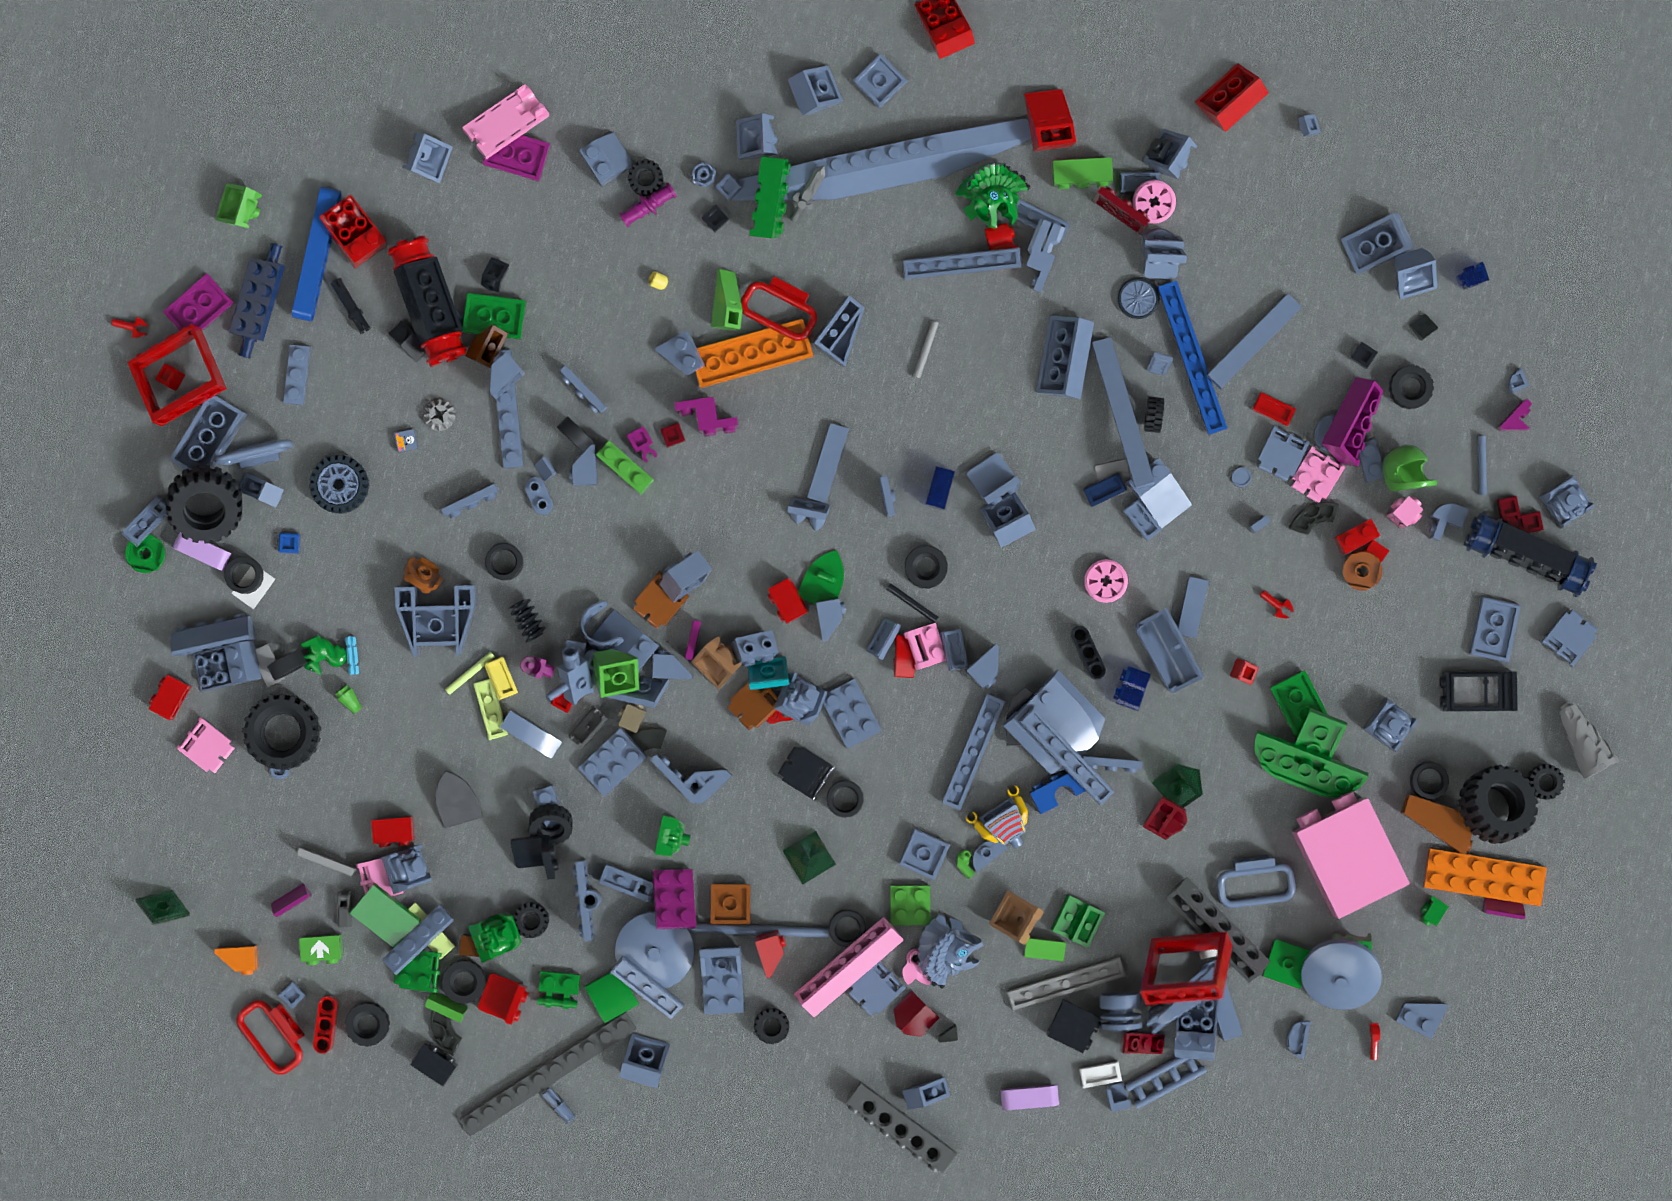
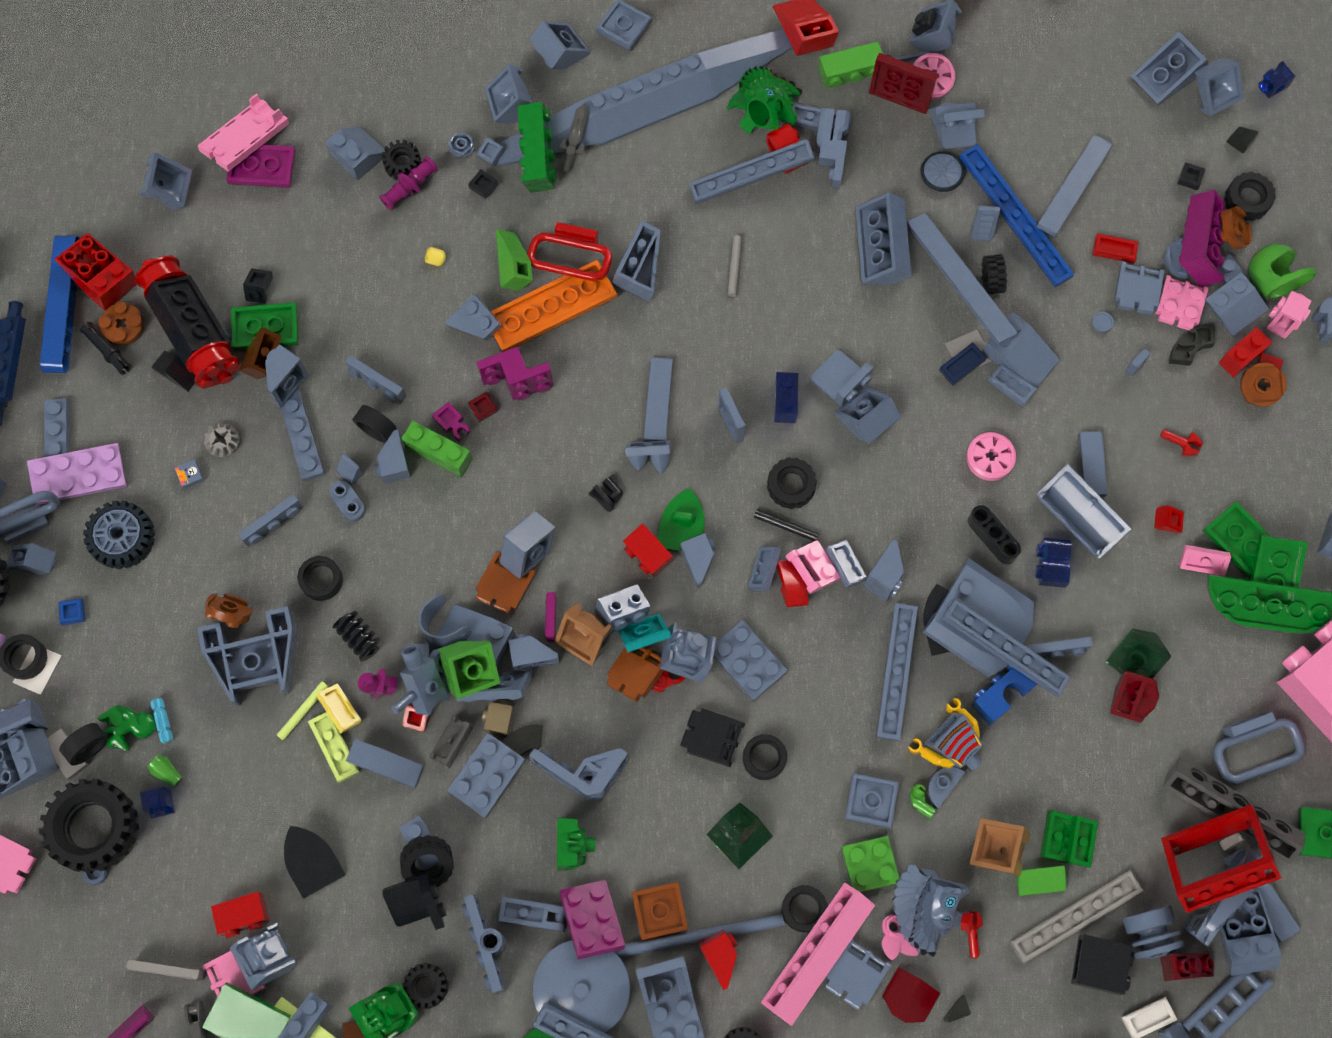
camera: 10 degrees left, 15 degrees down
(310, 420) = (78, 472): none -> lavender plate
(339, 724) = (157, 802): none -> clear blue brick
(356, 284) = (119, 312): none -> dark orange plate
(770, 532) = (607, 501): none -> black piece
(977, 970) = (971, 922): none -> red bar
(1261, 715) = (1205, 560): none -> bright pink plate
(1362, 491) = (1236, 304): none -> sand blue slope
(1383, 409) = (1235, 229): none -> dark orange plate

